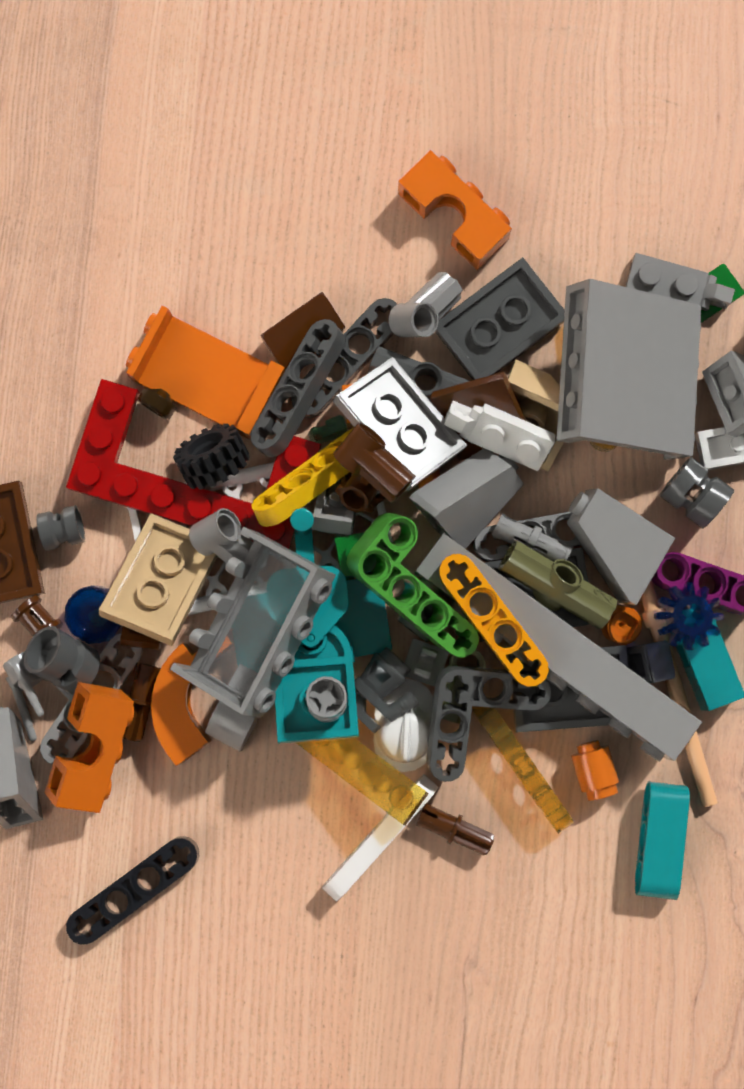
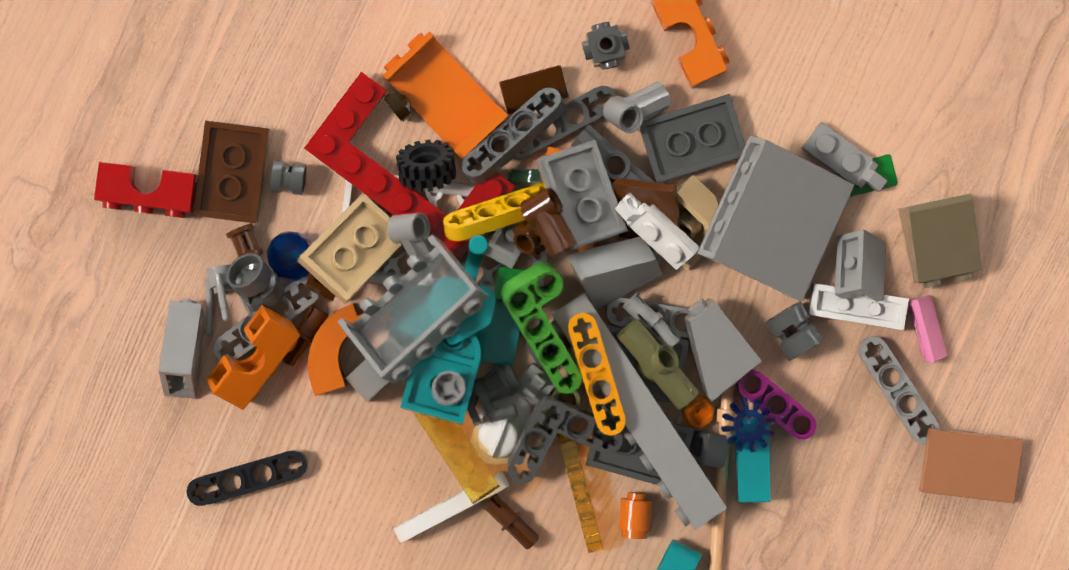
camera: 20 degrees right, 5 degrees up
(365, 265) = (599, 56): none -> dark grey brick

